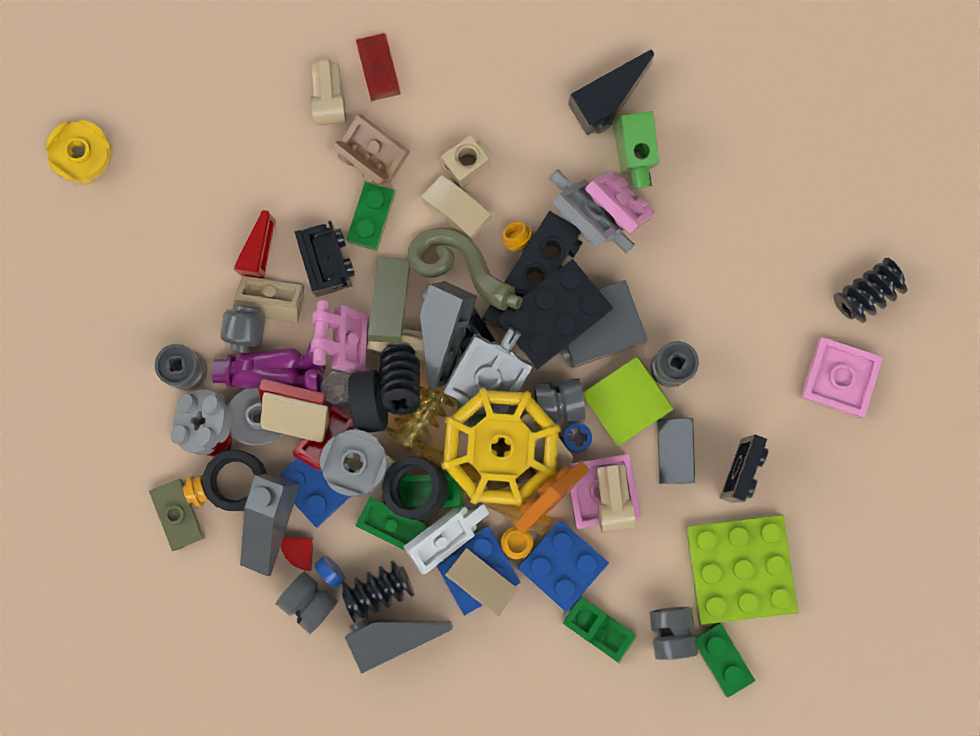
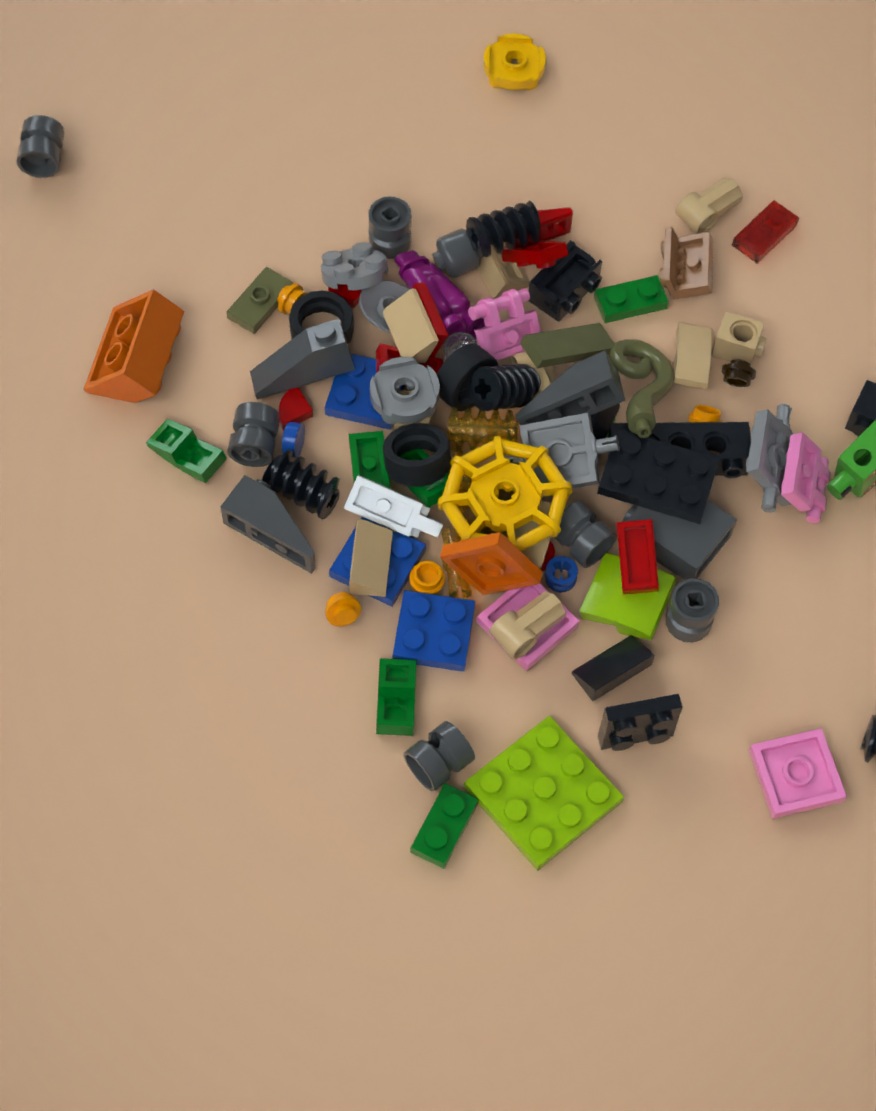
camera: 55 degrees right, 20 degrees down
(160, 649) = (135, 348): none -> orange slope
(255, 282) = (504, 227): none -> black piece
(282, 662) = (186, 452): none -> green slope
(289, 270) = (542, 254): none -> red plate
(494, 183) = (738, 373): none -> dark brown plate
(505, 627) = (342, 609): none -> light orange plate
(610, 376) = (637, 556): none -> red tile

